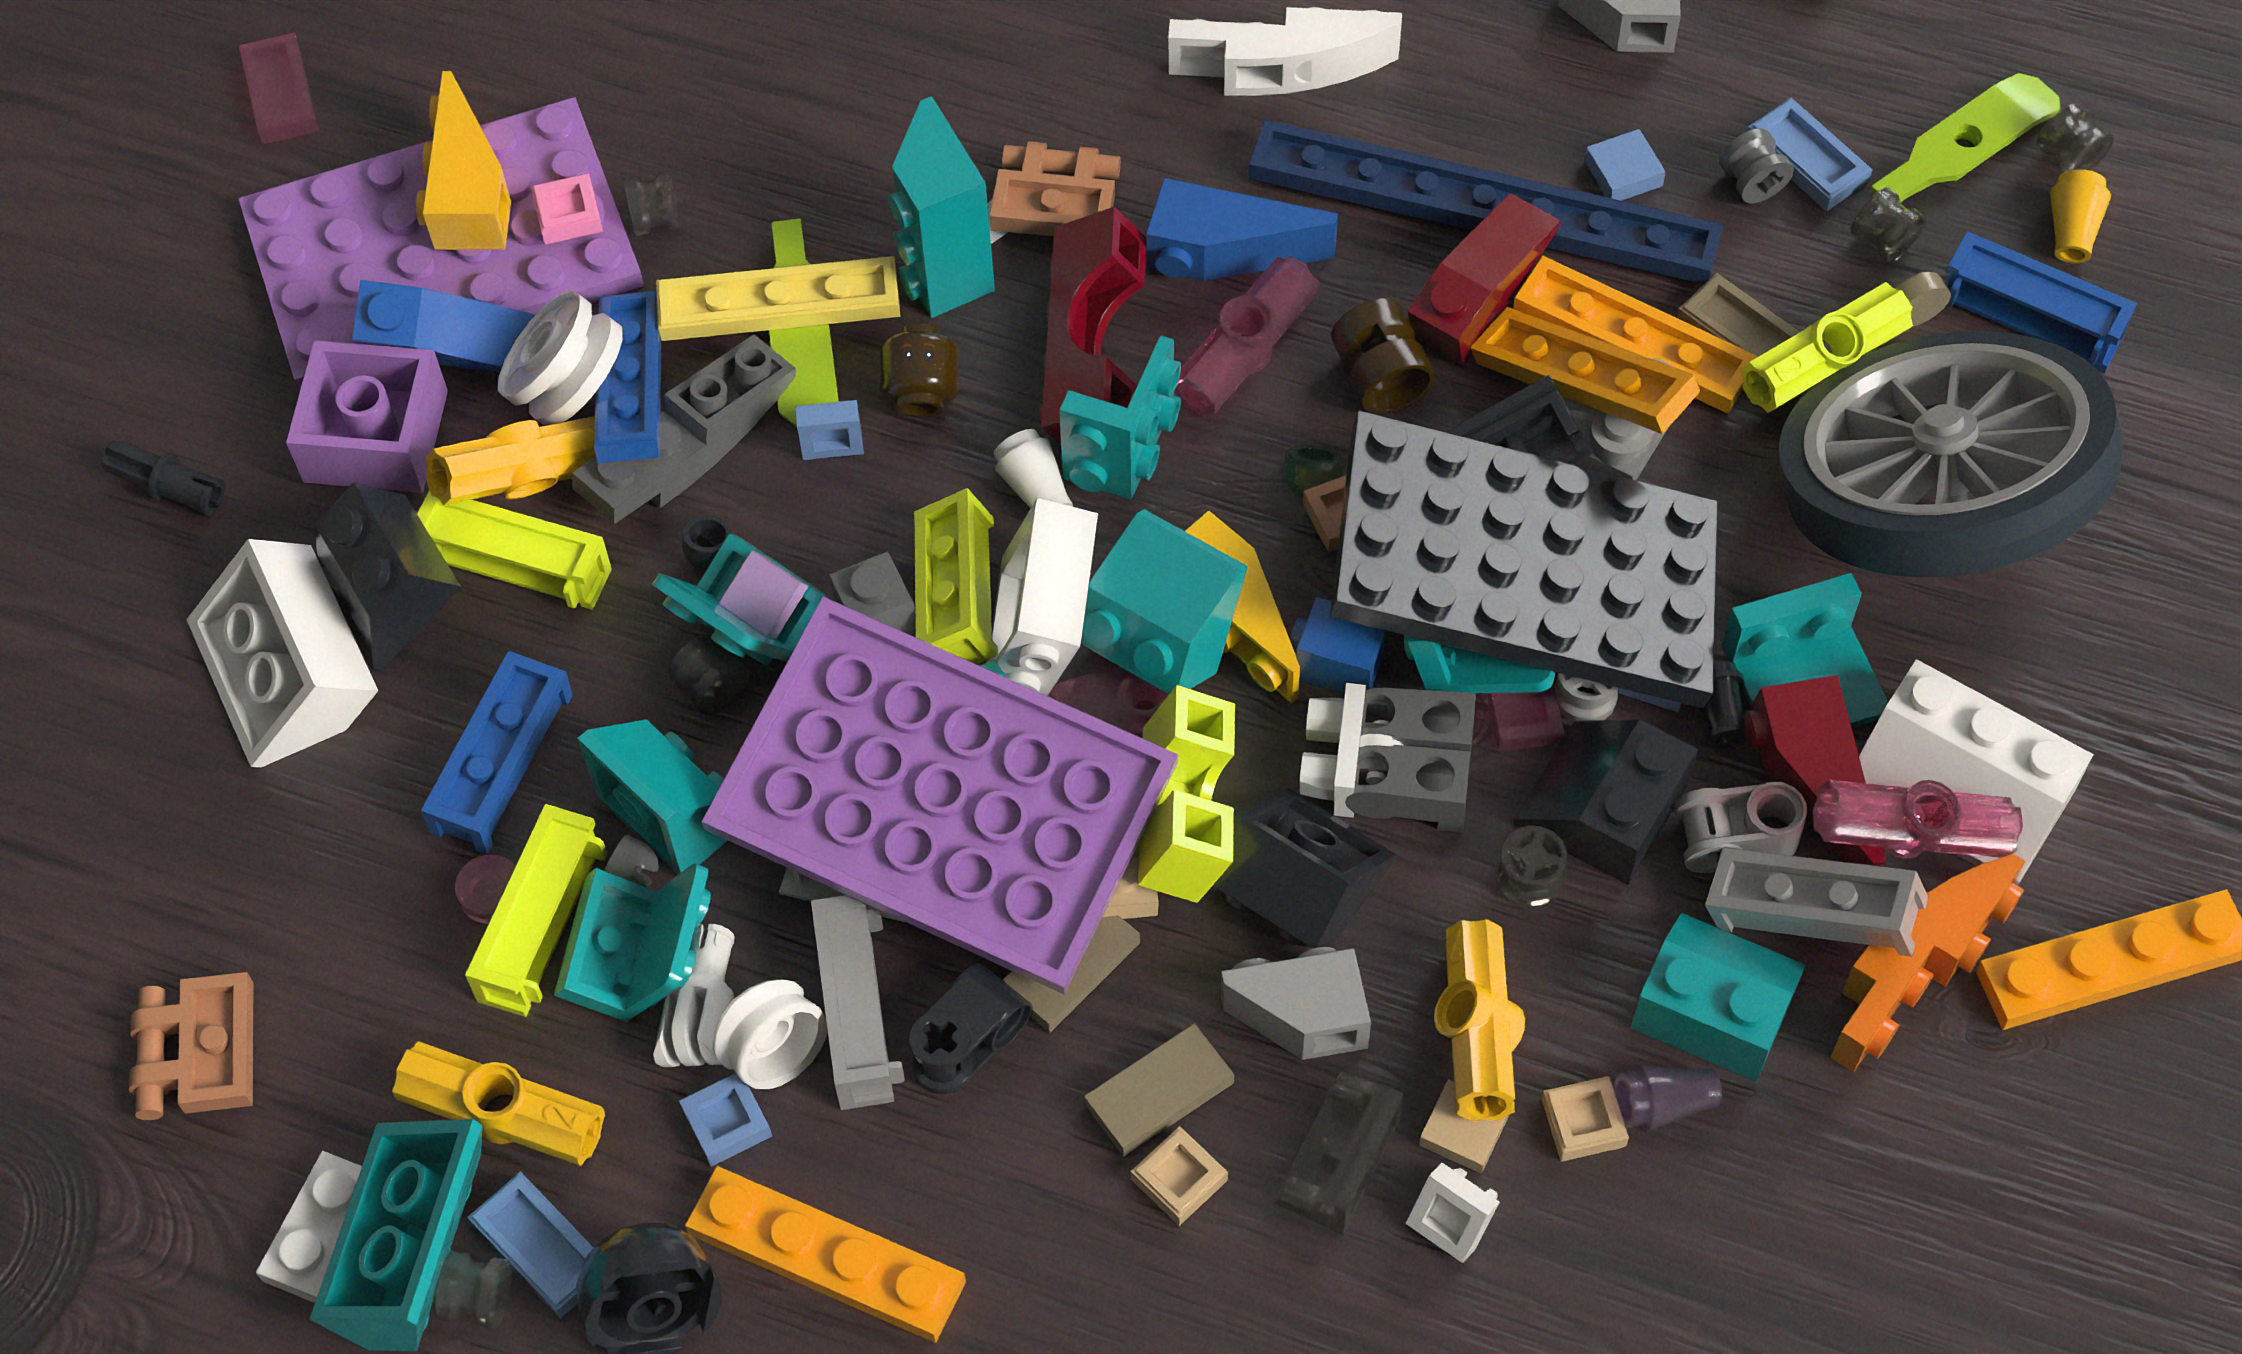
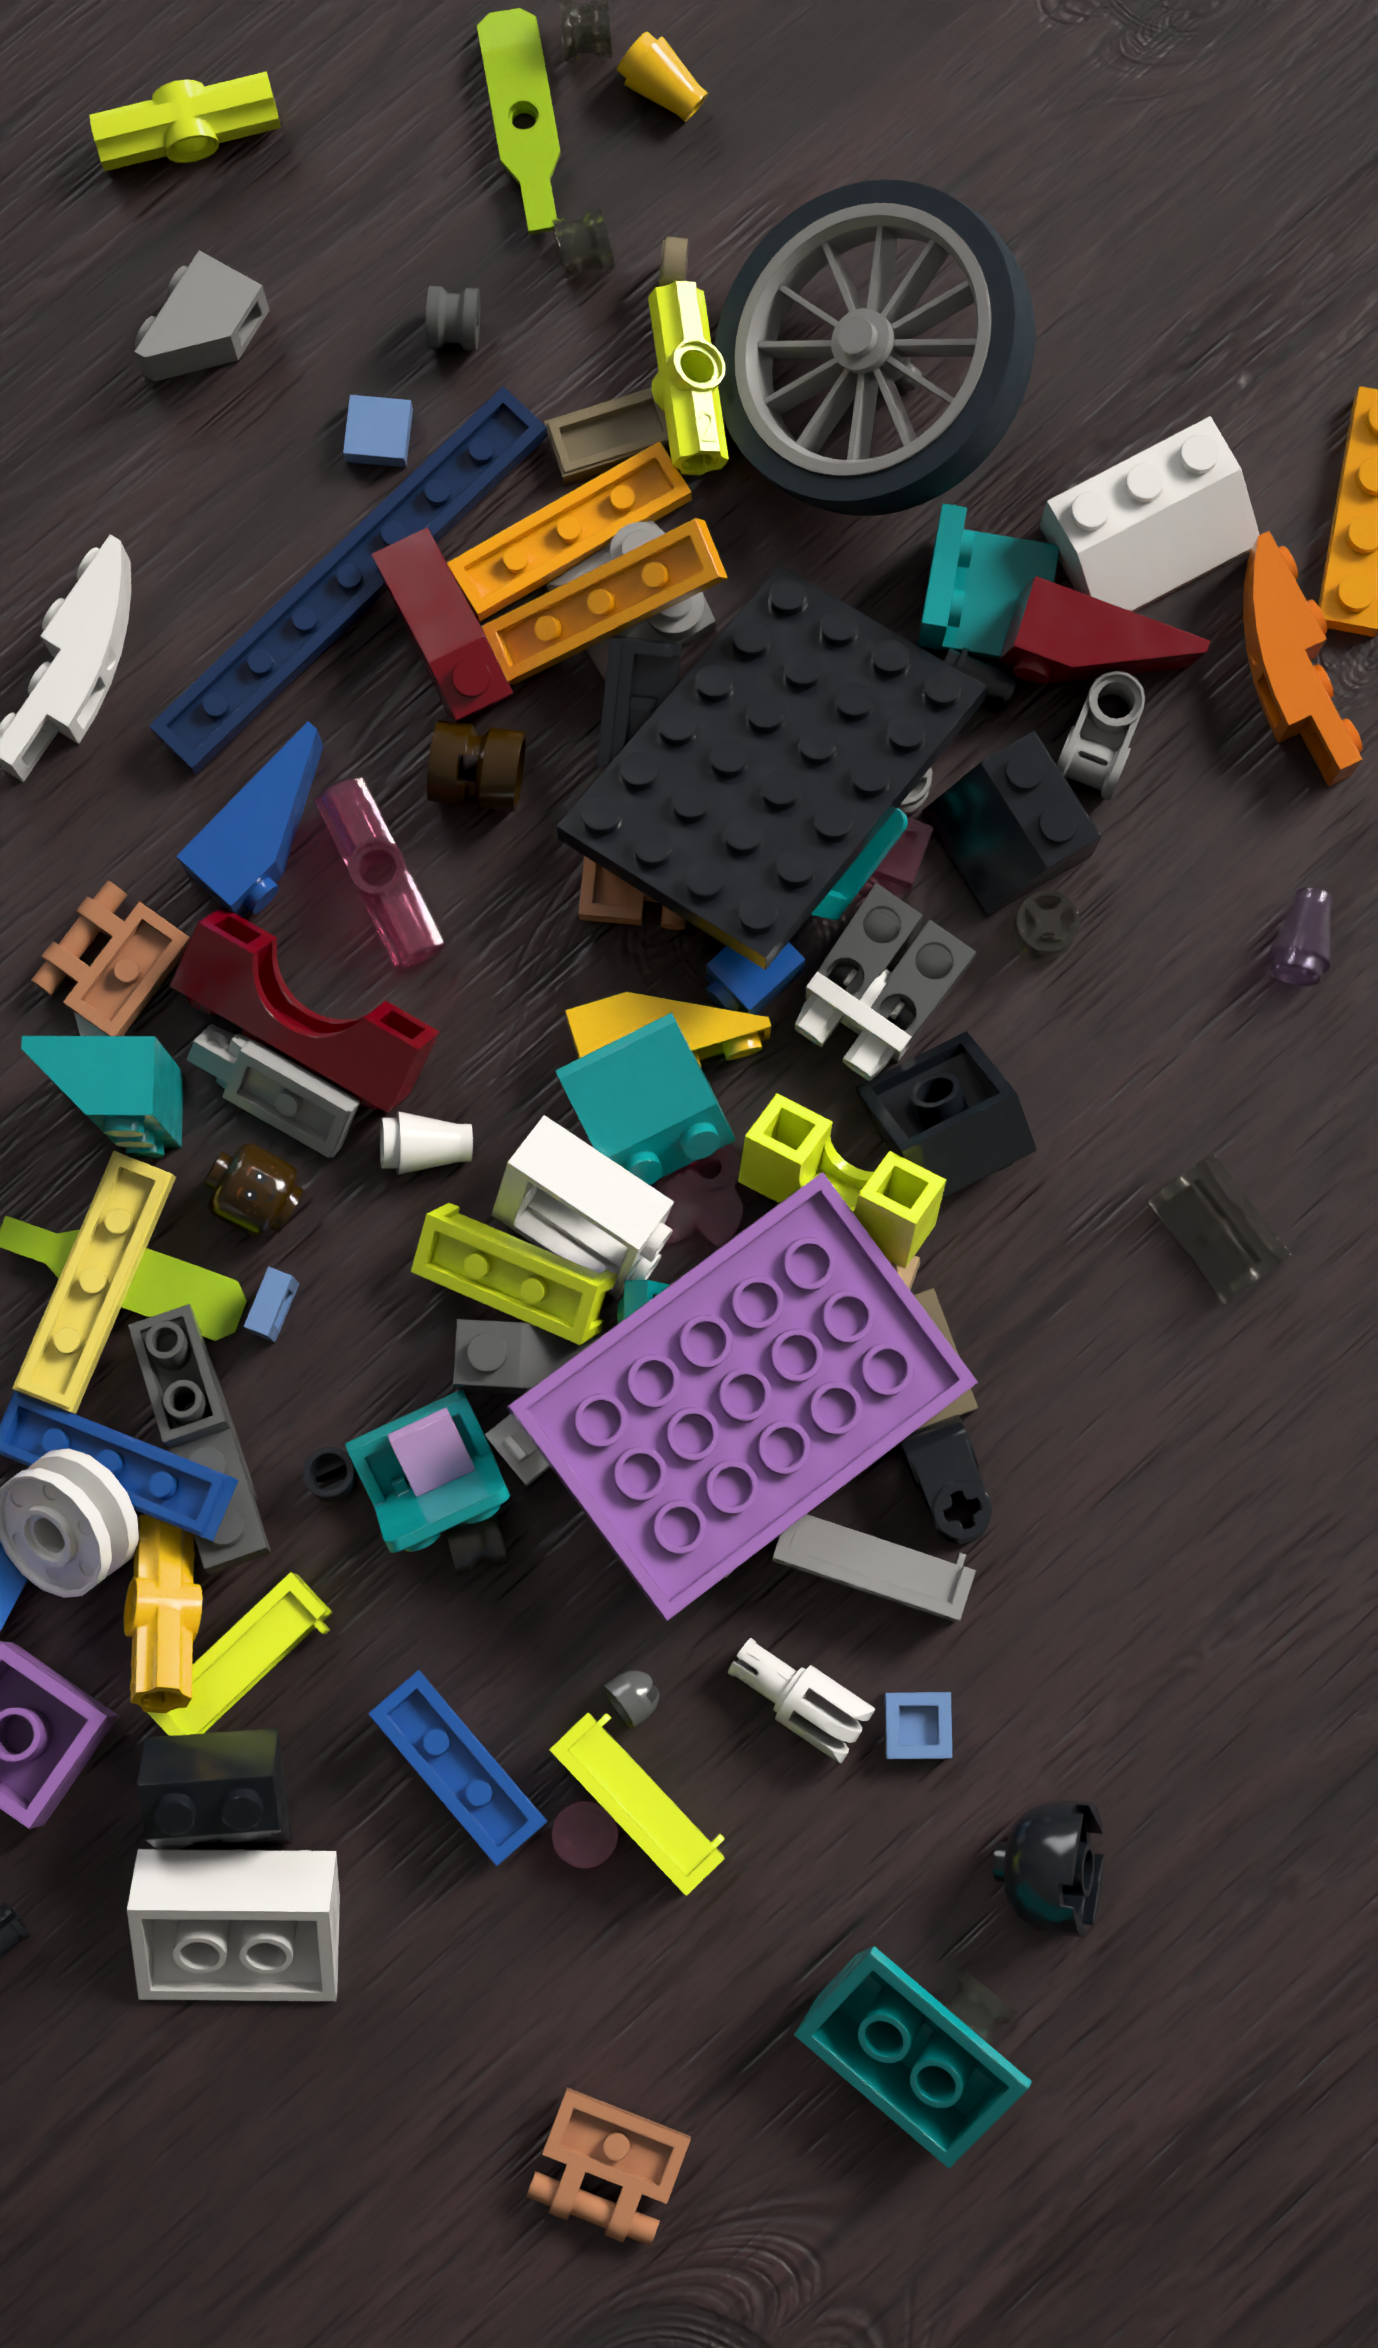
camera: 65 degrees left, 20 degrees up
(311, 1228) = (841, 2123): white plate -> none
(534, 1118) = (778, 1949): yellow piece -> none
(535, 1240) = (954, 1936): medium blue tile -> none
(632, 942) = (725, 1728): teal bracket -> none
(654, 789) = (584, 1635): teal slope -> none
(769, 1034) = (878, 1653): white piece -> none
(826, 1254) = (1085, 1698): light orange plate -> none
(1015, 351) = (276, 1089): none -> light grey hinge
(1116, 445) = (443, 1071): teal bracket -> none
(1159, 1089) = (1081, 1345): dark tan tile -> none
(1179, 1176) = (1165, 1369): tan tile -> none
(1302, 1003) = (1077, 1184): light grey slope -> none
(1311, 466) = (553, 903): clear green piece -> none
(1453, 1211) = (1319, 1165): white tile -> none
(1459, 1138) = (1243, 1114): tan tile -> none
(1479, 1021) = (1196, 1062): yellow piece -> none
(1584, 1118) = (1284, 1013): tan tile -> none
(1717, 996) = (1239, 839): teal slope -> none
(1816, 898) = (1218, 719): light grey container -> none
(1819, 159) = (457, 259): medium blue tile -> none
(1887, 819) = (1200, 595): clear pink piece -> none
(2038, 300) = (733, 169): blue container -> none

